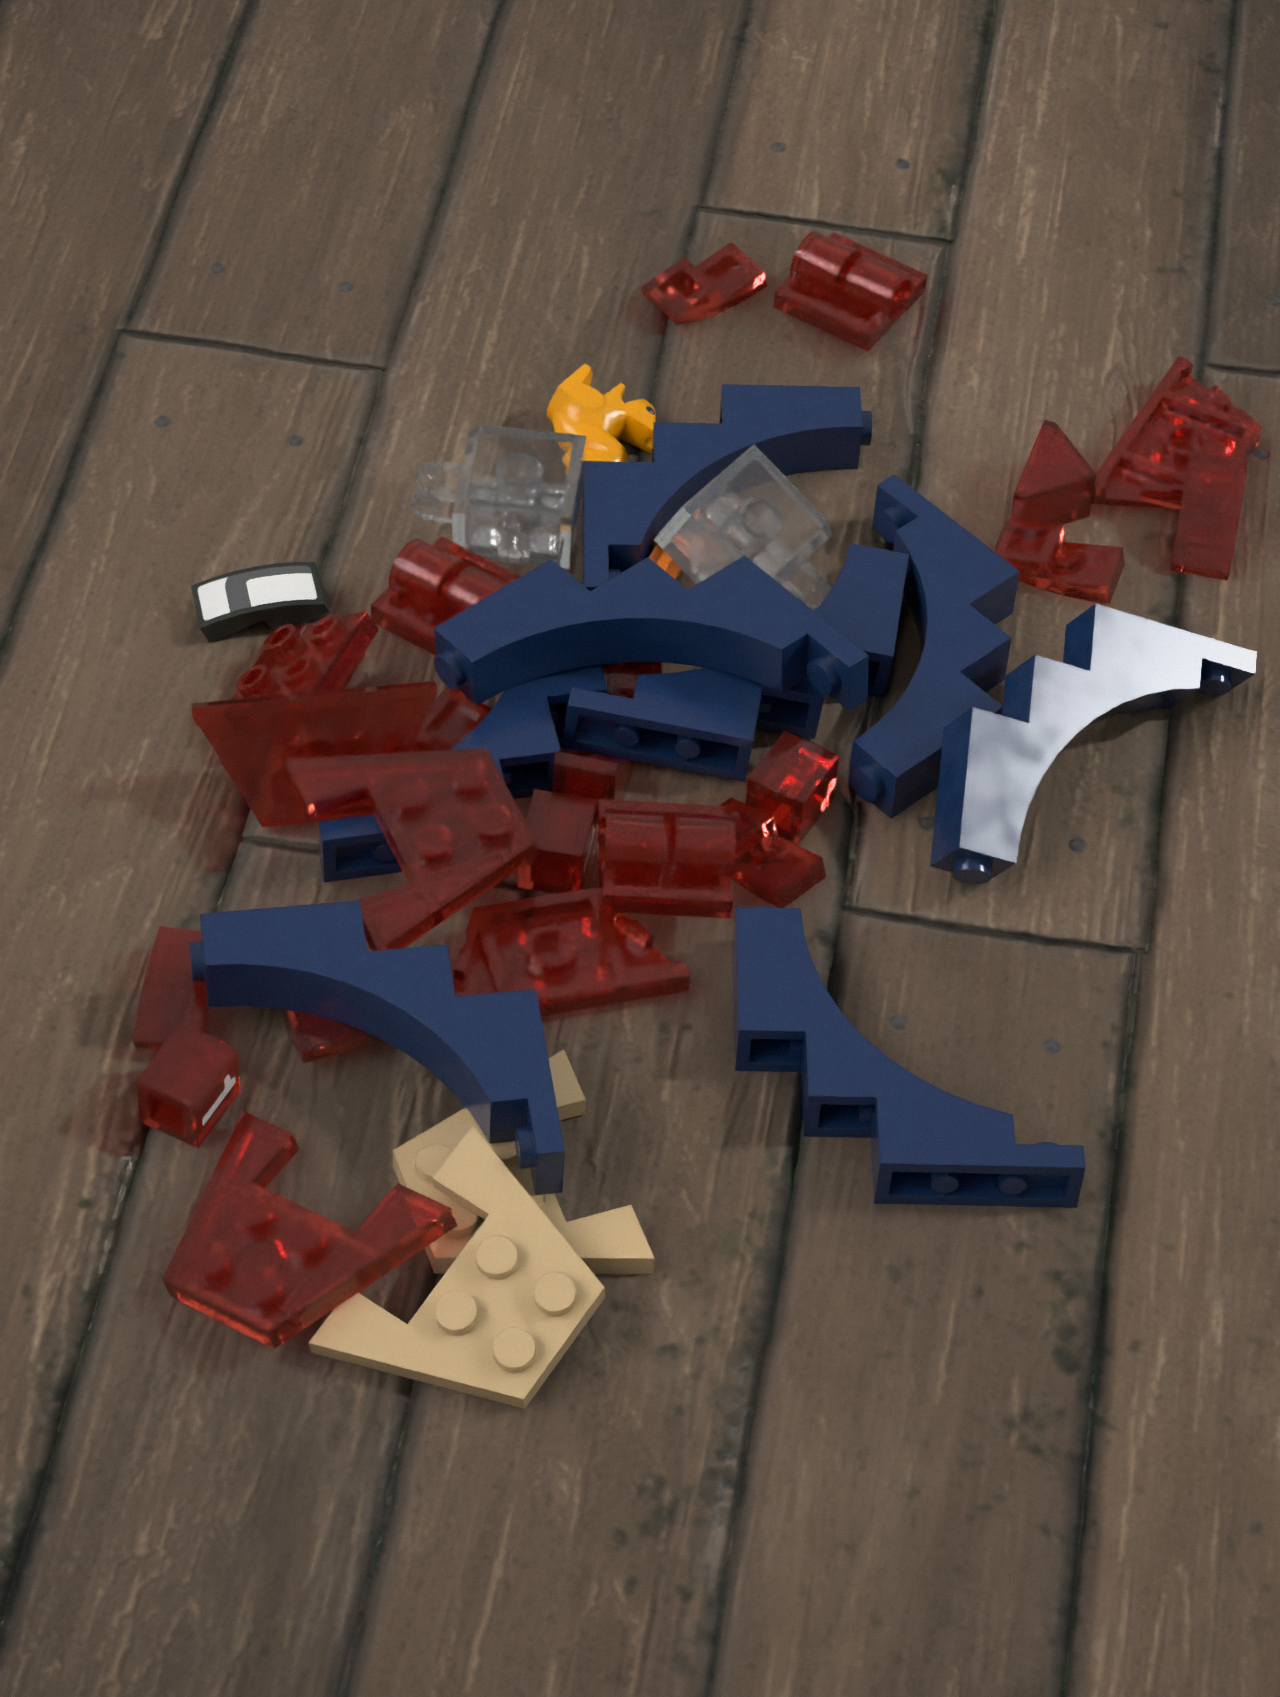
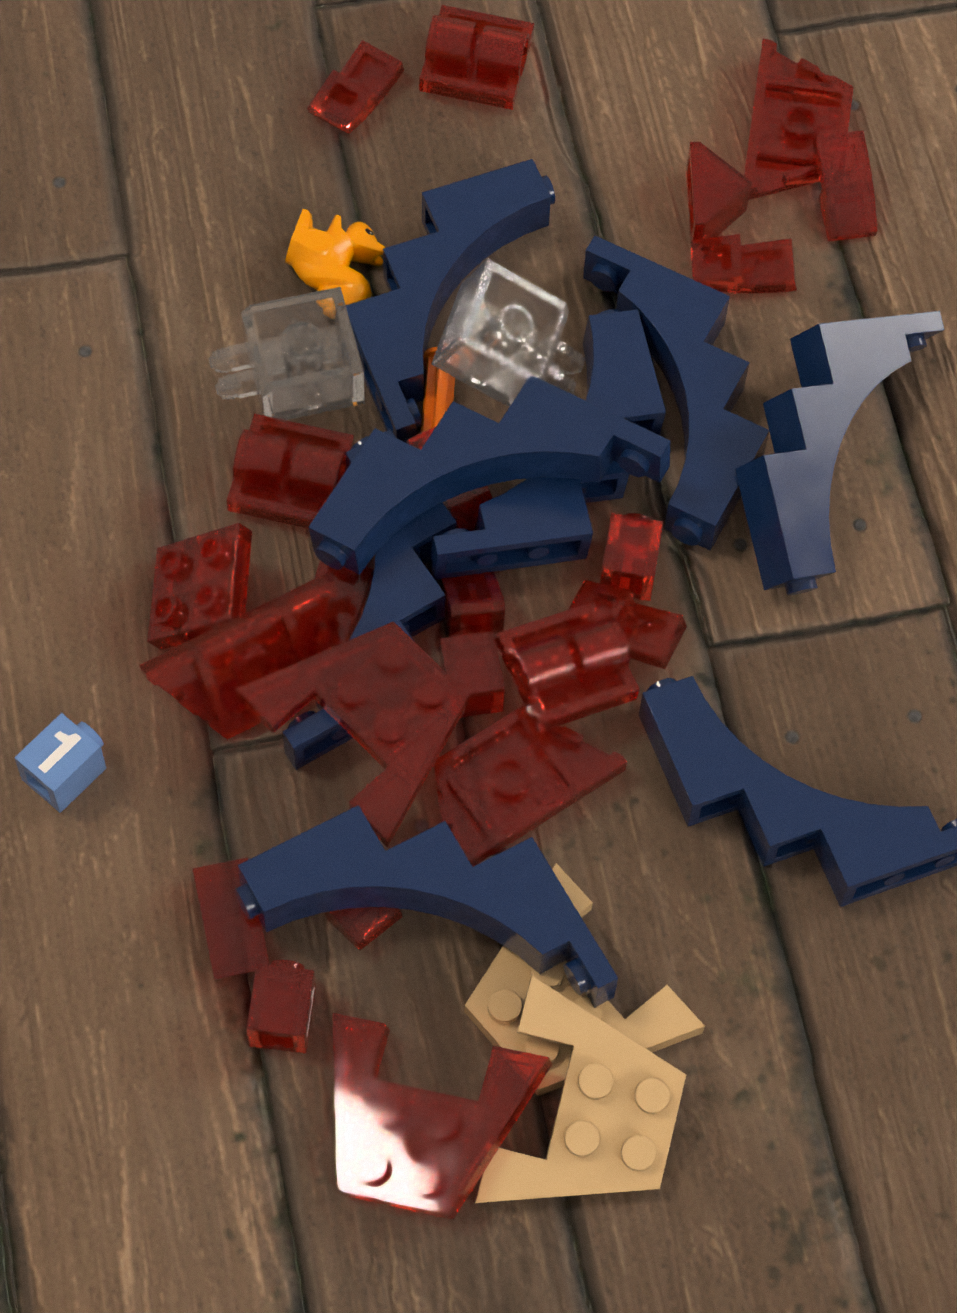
camera: 20 degrees left, 15 degrees up
(73, 787) = (62, 761): none -> medium blue brick
(266, 592) = (133, 517): slope -> none

